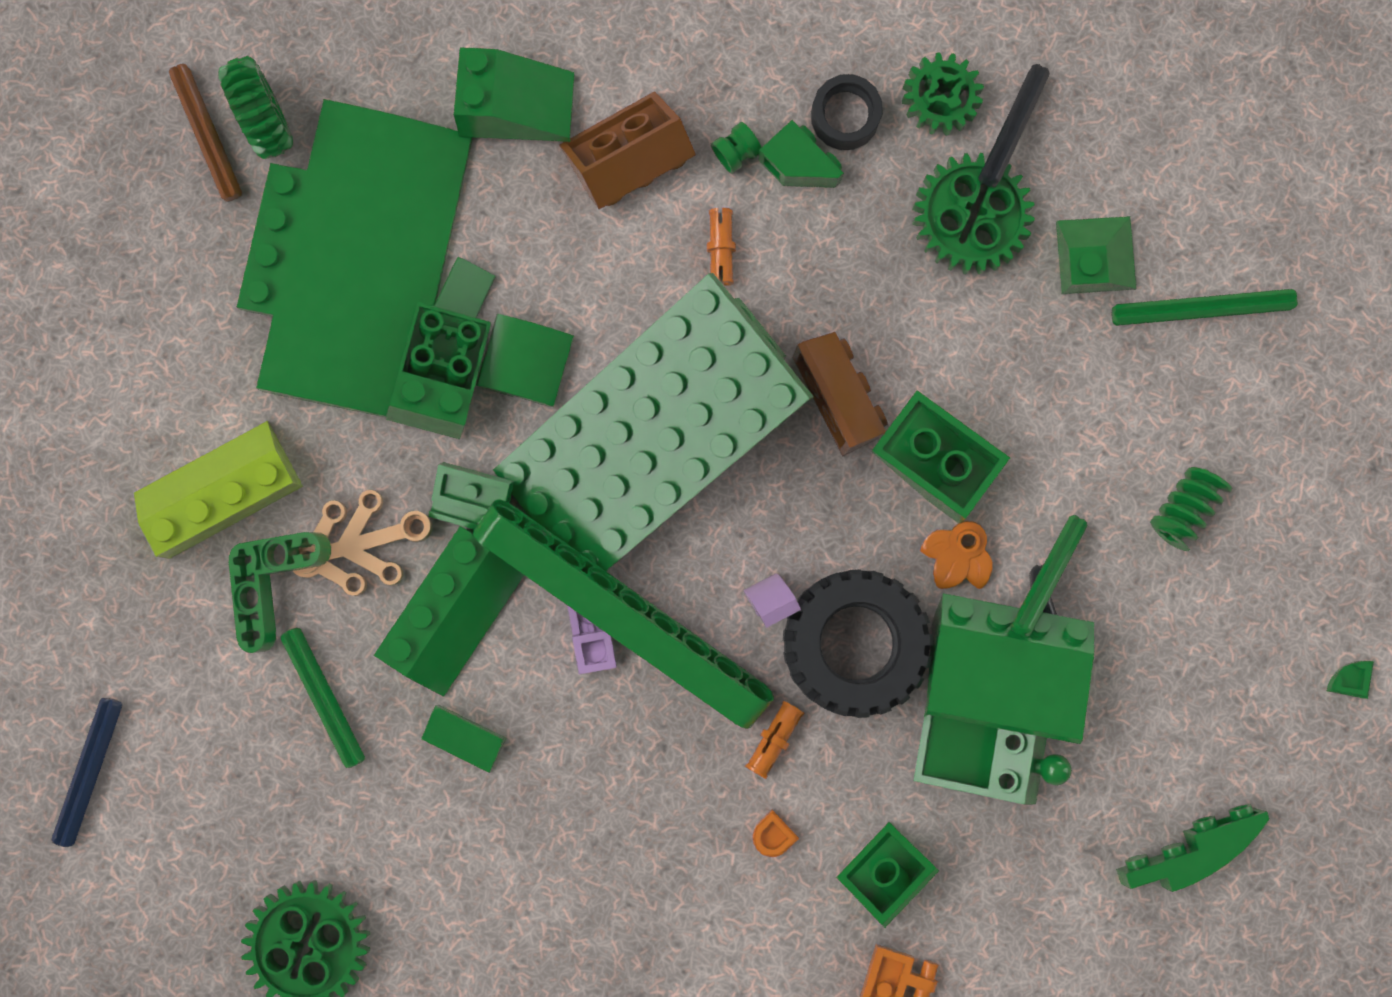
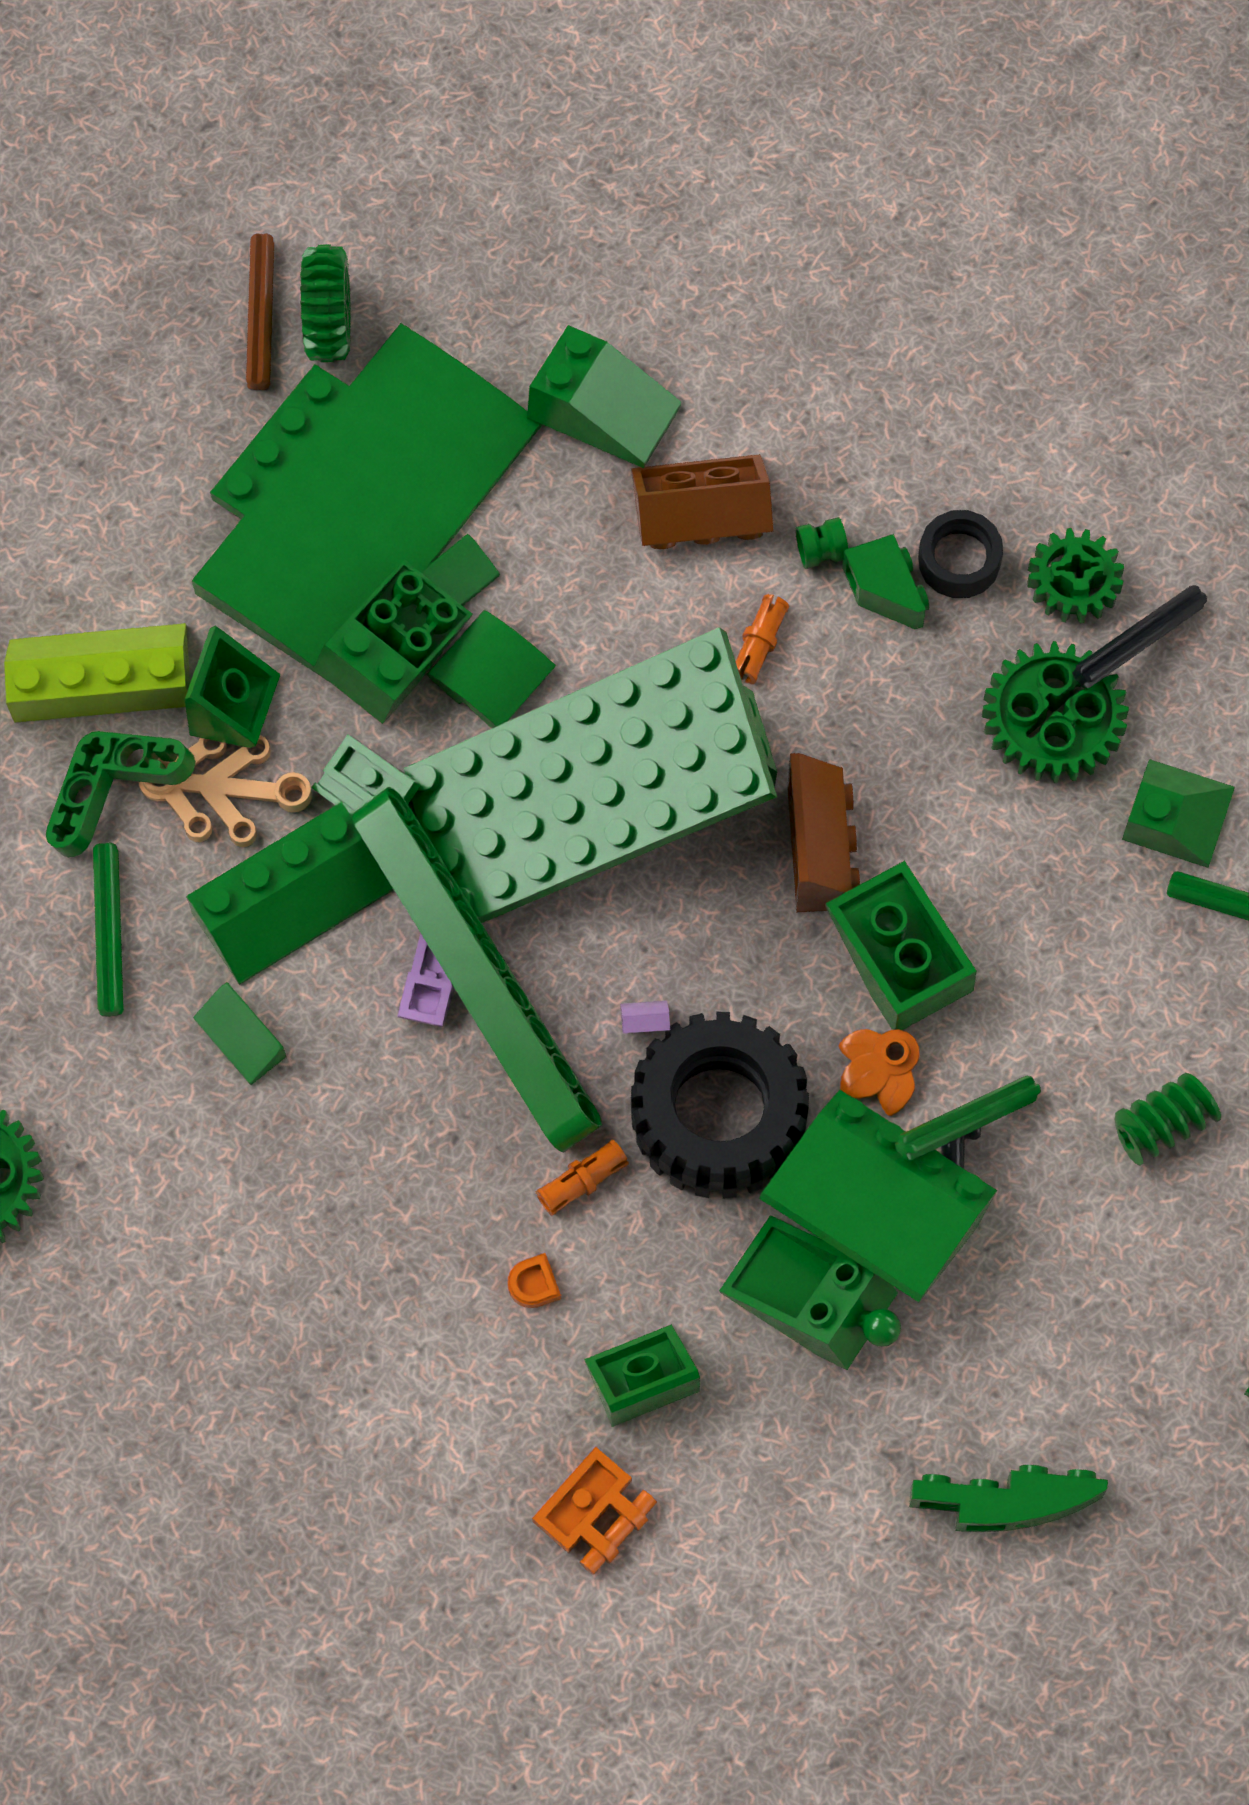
camera: 30 degrees right, 15 degrees down
(329, 468) = (229, 692): none -> green slope

